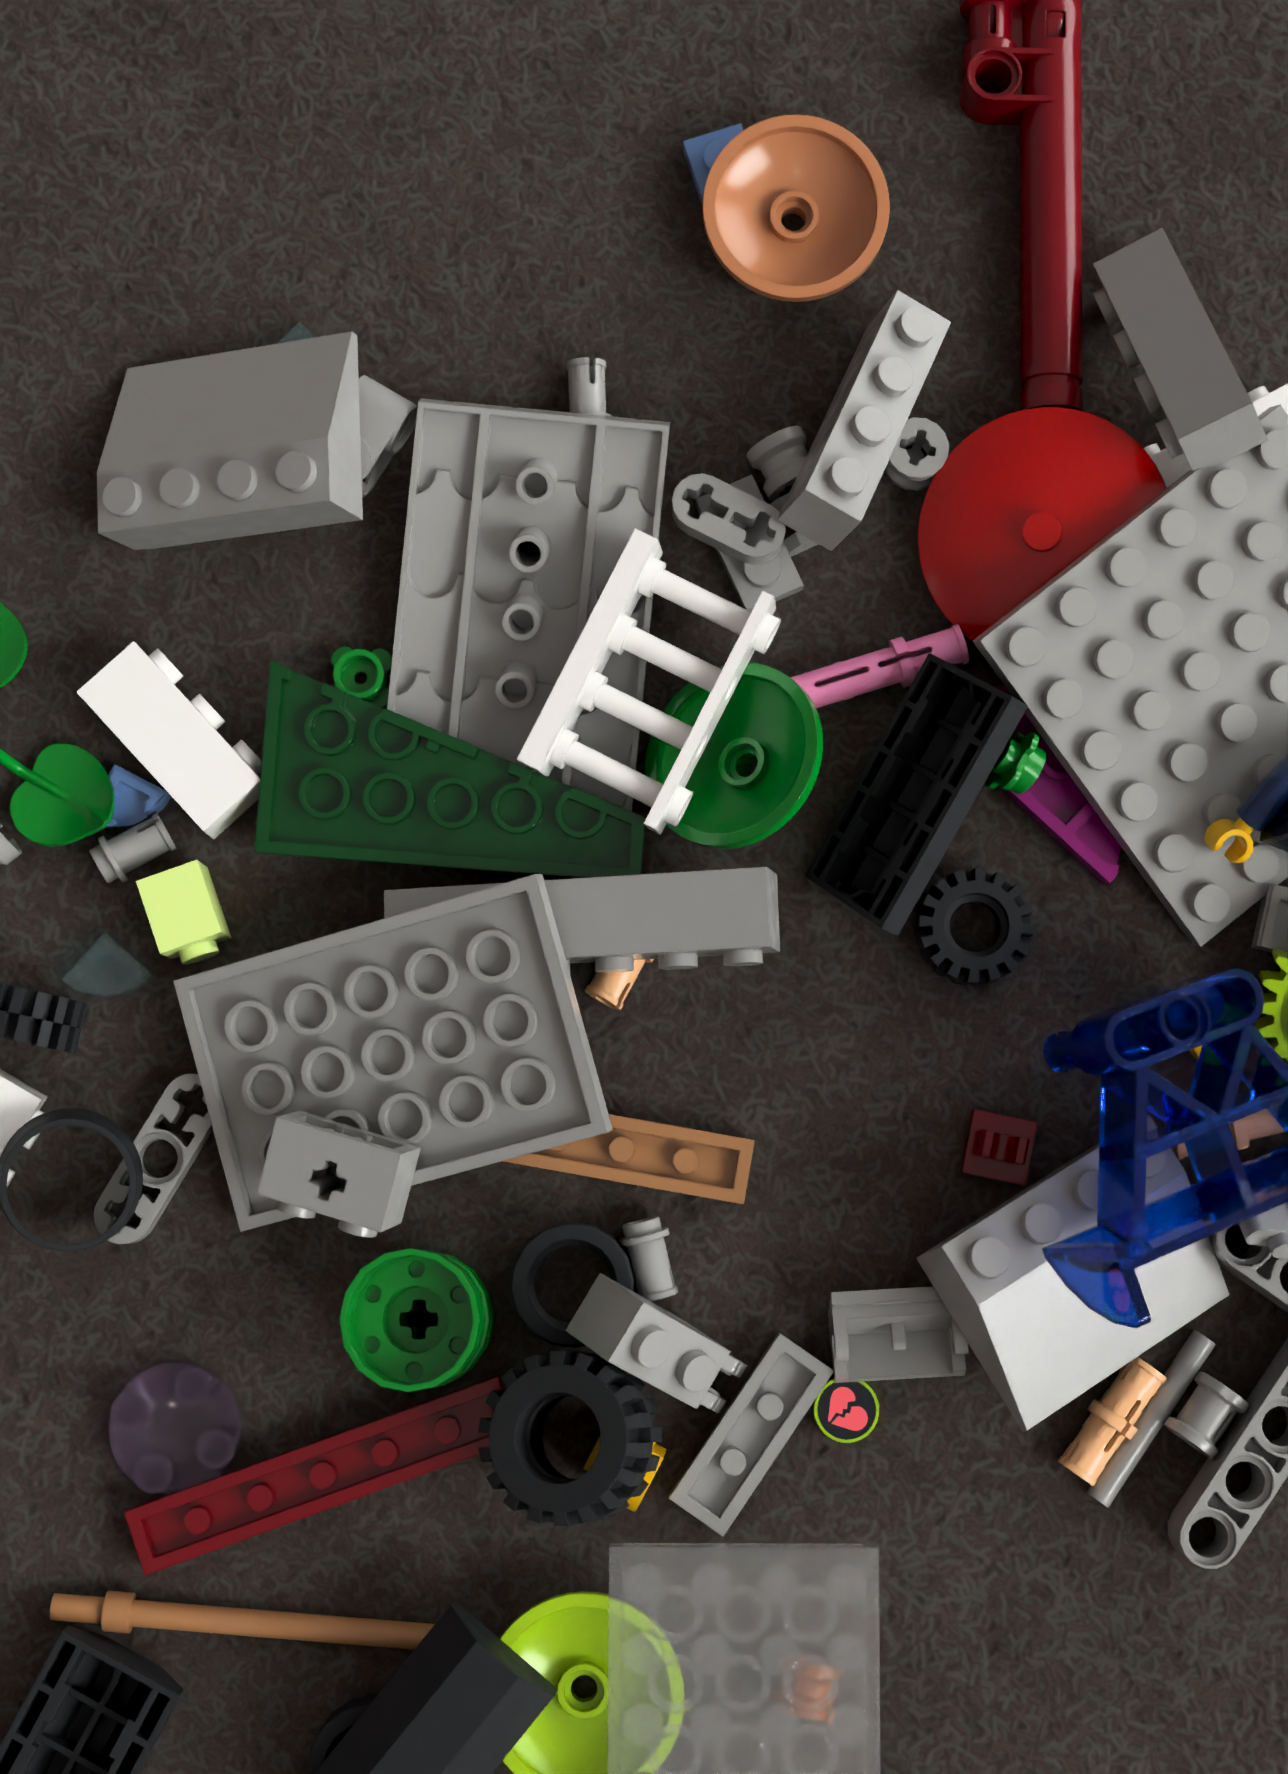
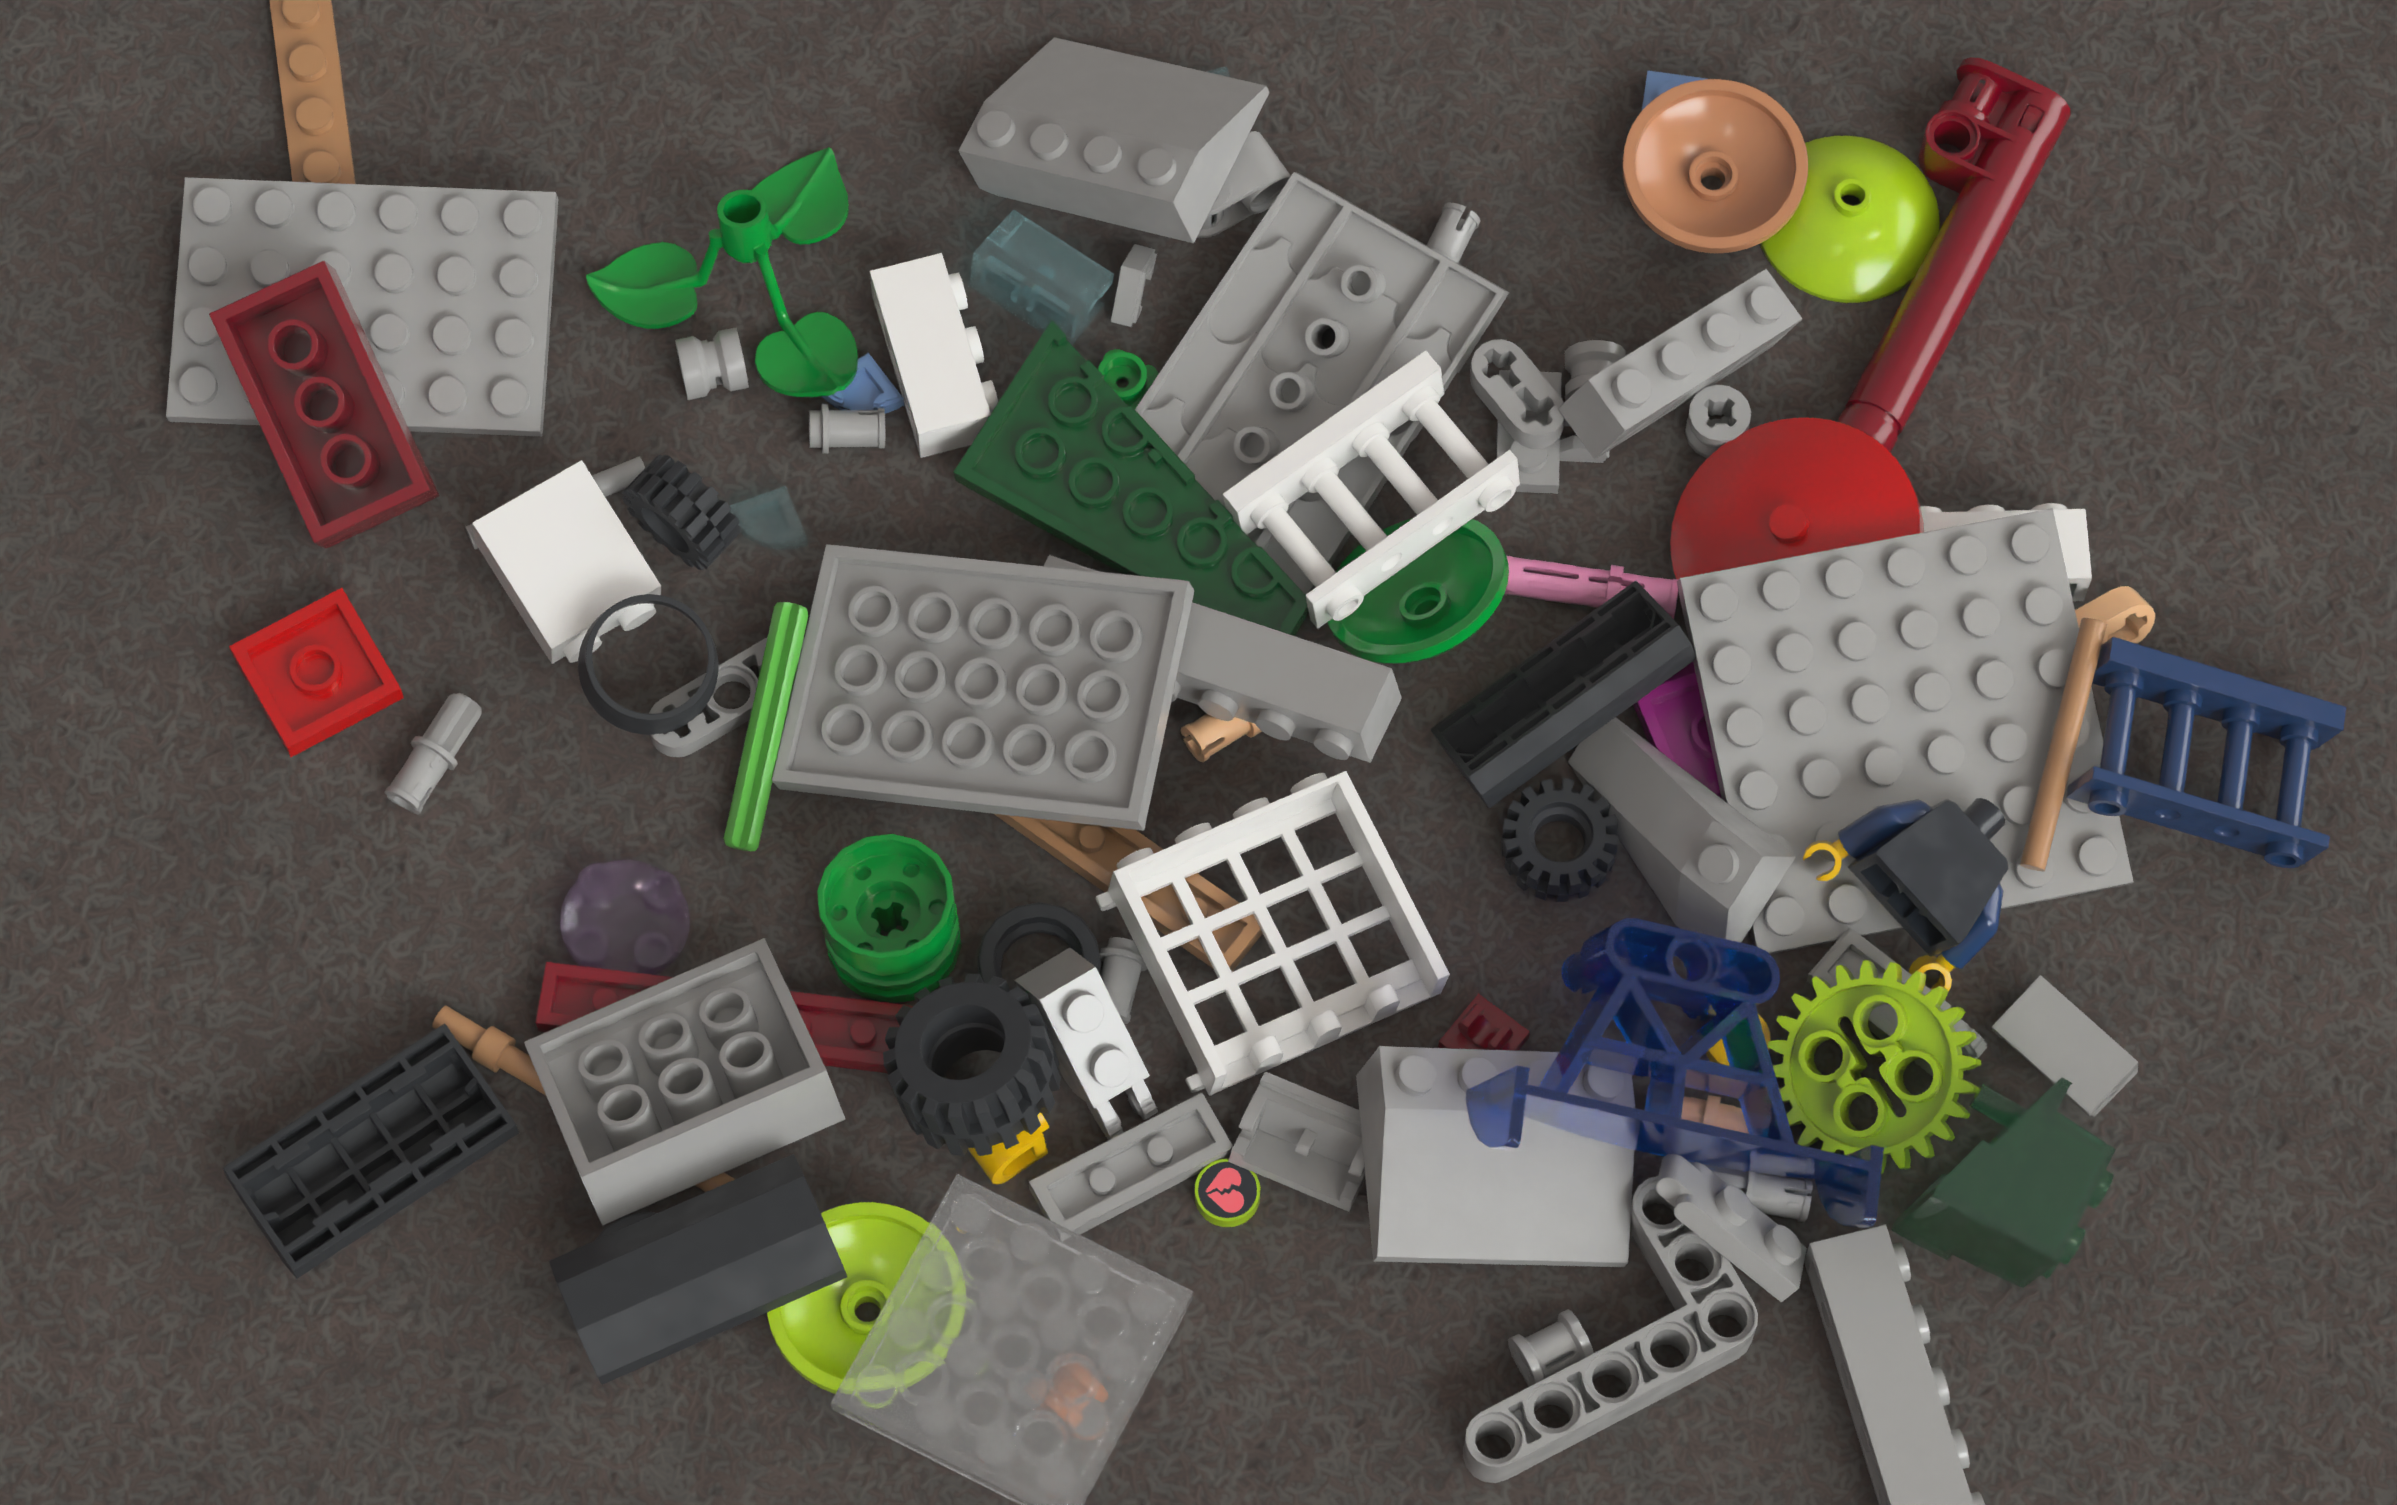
camera: 25 degrees right, 15 degrees down
(184, 912) = (864, 497): yellowish green brick -> none
(208, 1181) = (766, 726): none -> bright green axle
(235, 615) = (1039, 277): none -> clear light blue hinge
(308, 1575) = (684, 1081): none -> light grey slope
(321, 578) = (1134, 271): none -> light grey tile
(374, 1165) = (920, 763): light grey brick -> none
(847, 1213) = (1313, 1022): none -> white window
(948, 230) = (1863, 248): none -> lime dish
(1018, 764) = (1665, 707): green plate -> none
(1093, 876) = (1688, 843): none -> light grey wedge
(1112, 1420) = (1464, 1316): light nougat pin -> none
(1153, 1416) = (1496, 1337): light grey bar -> none
(1179, 352) = (1988, 430): light grey brick -> none

